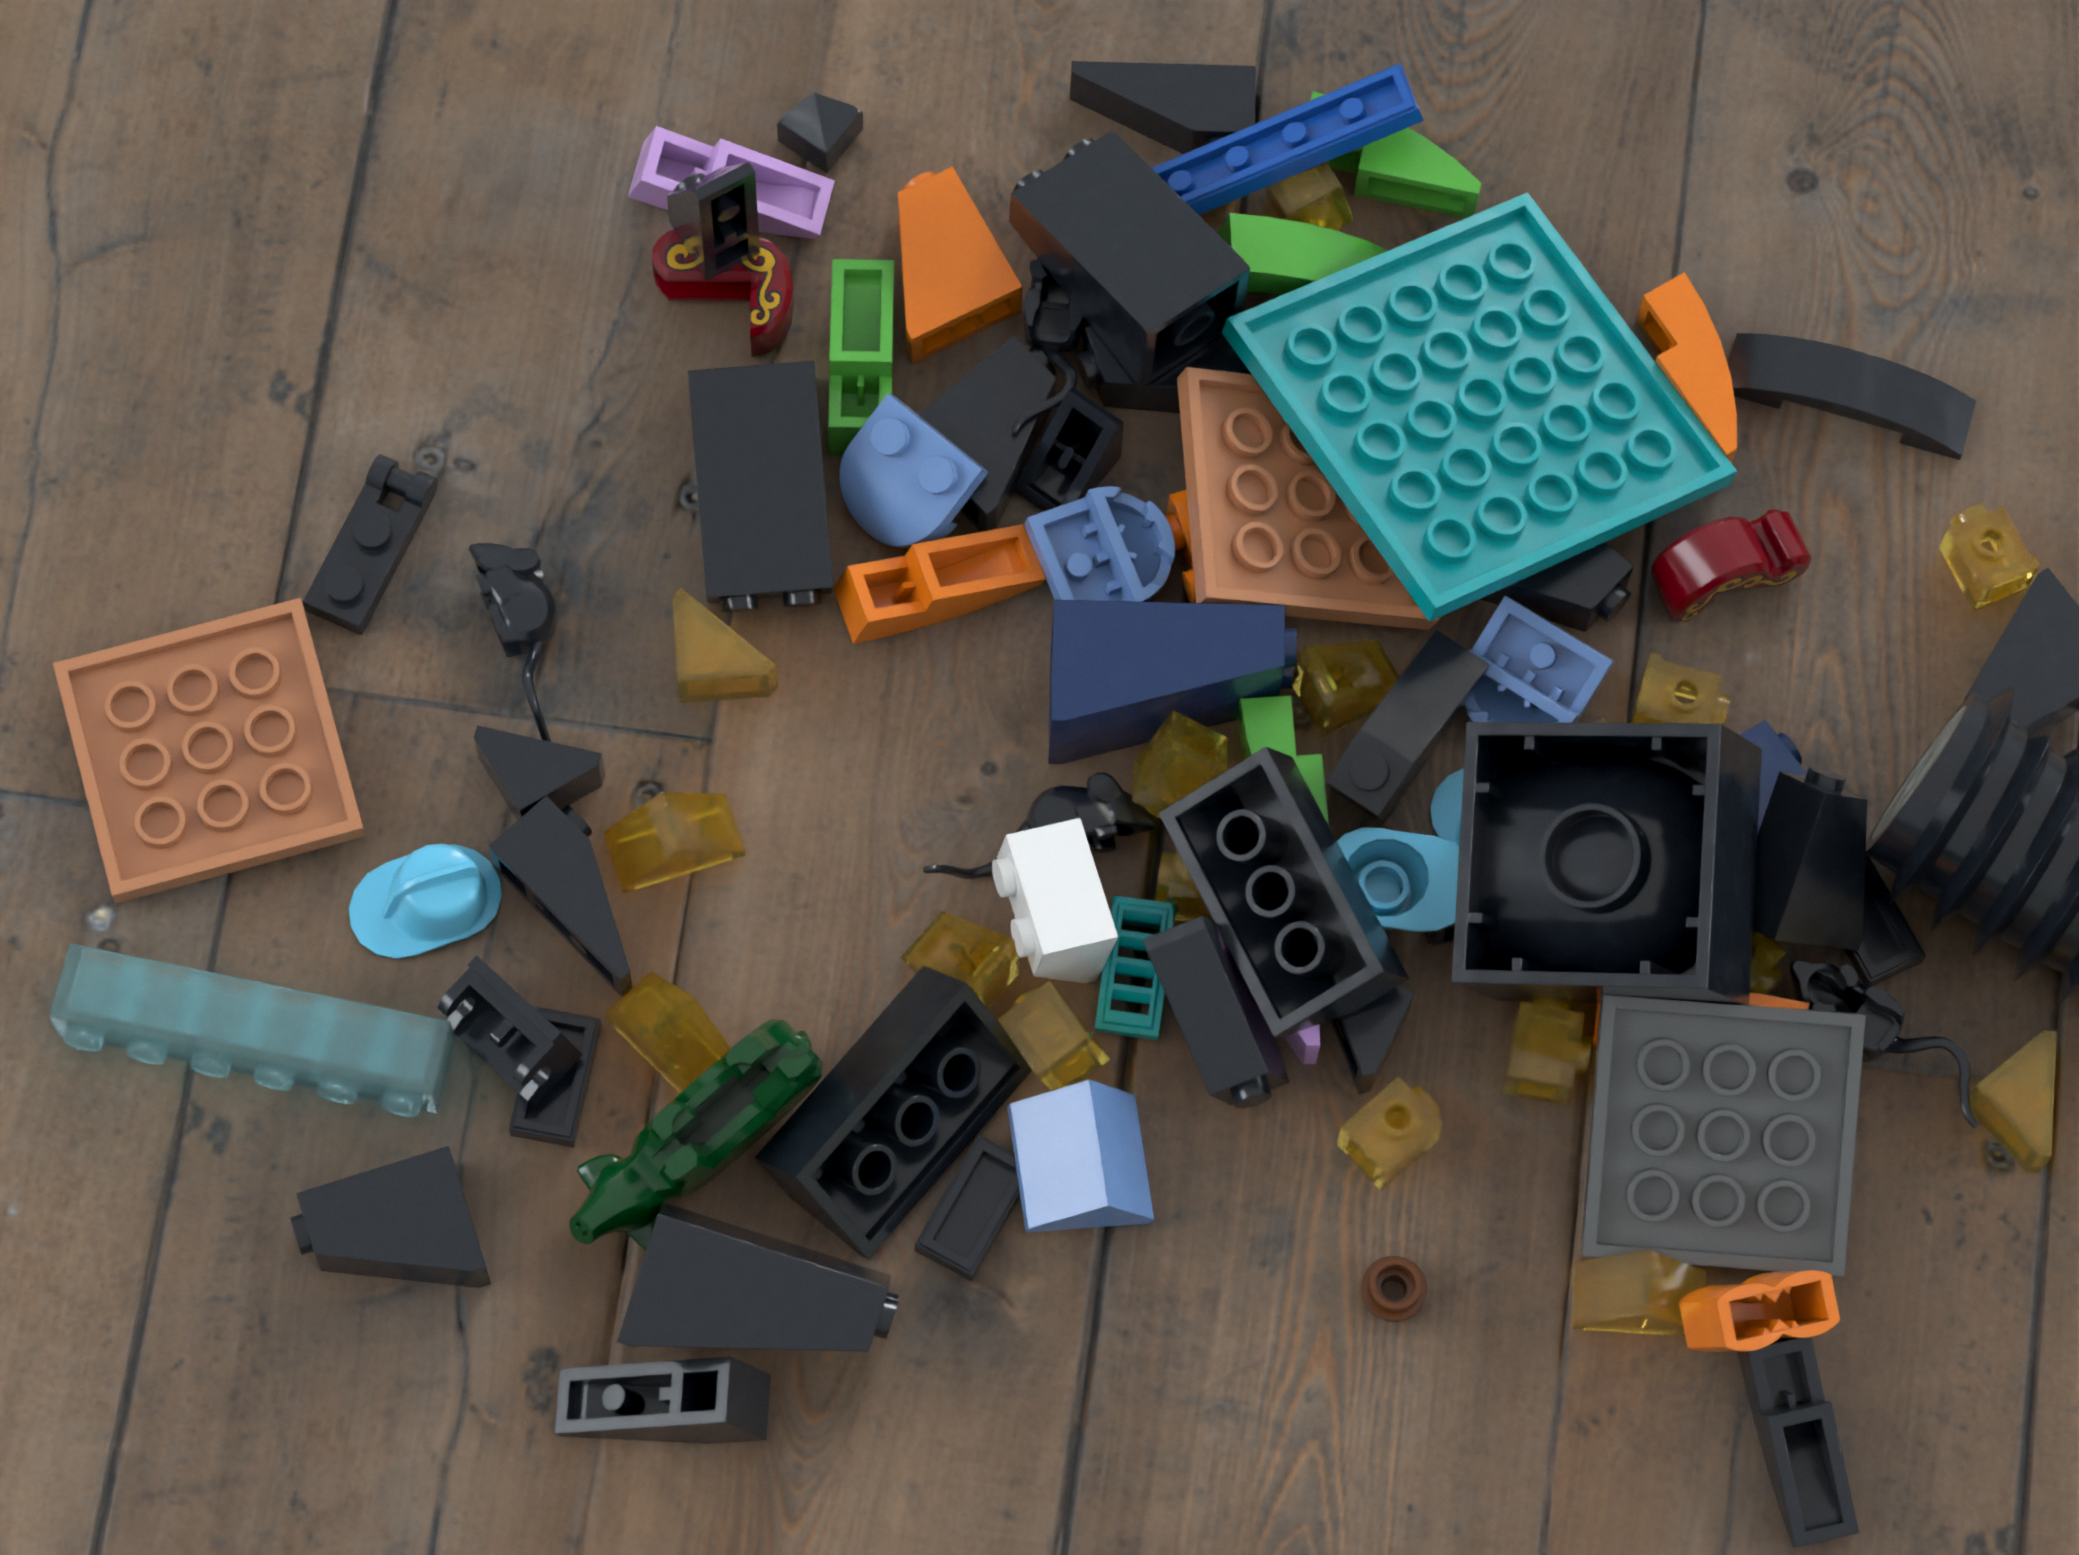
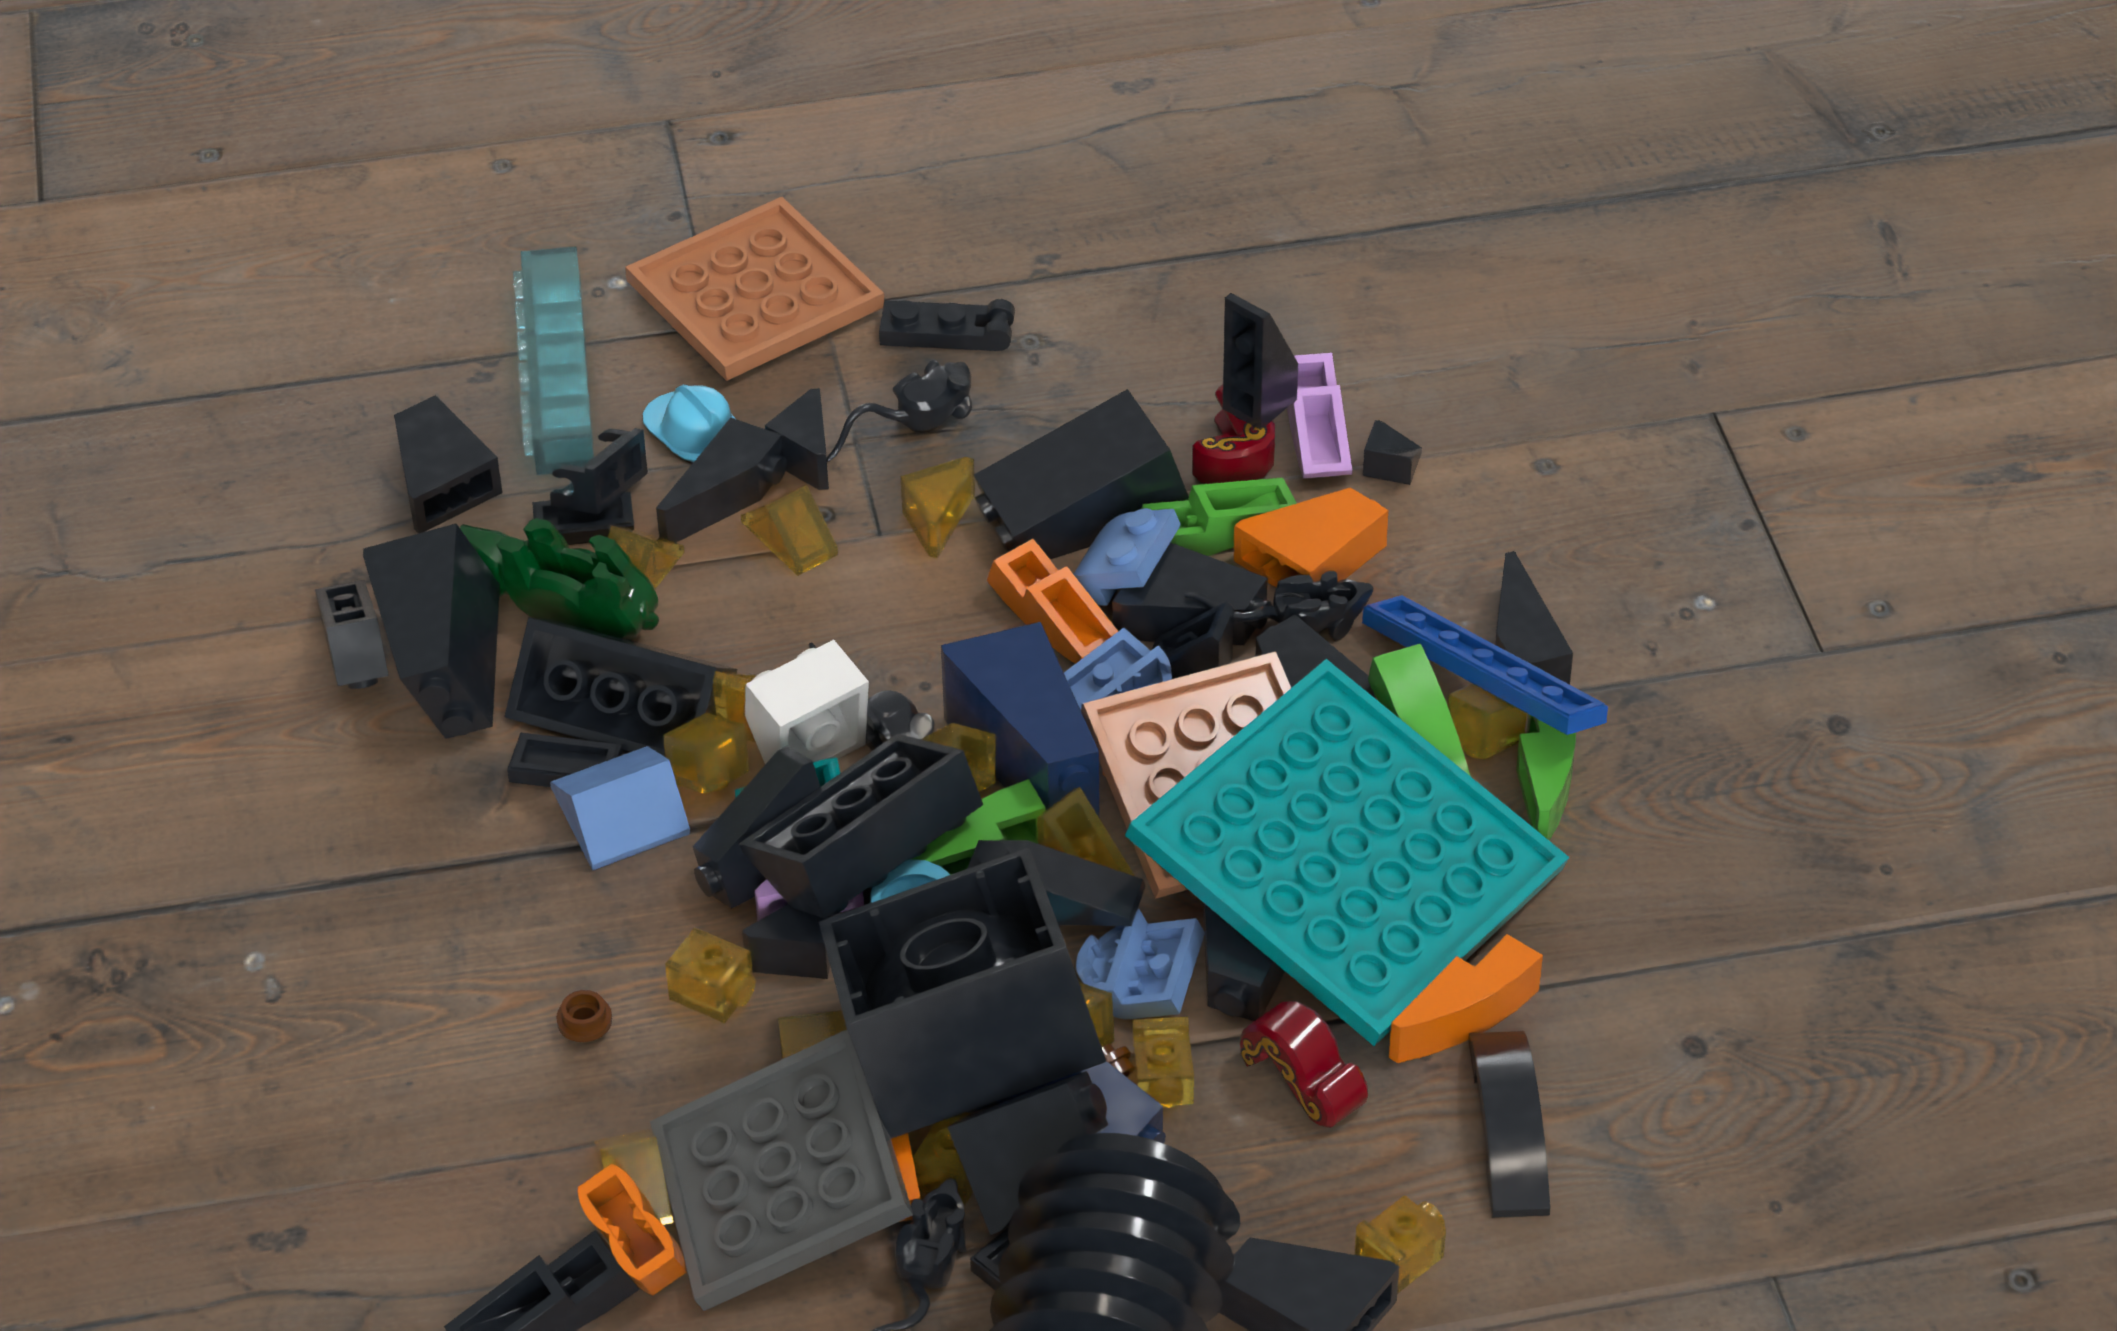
camera: 75 degrees right, 25 degrees down
(1130, 255) = (1350, 598): black slope -> none

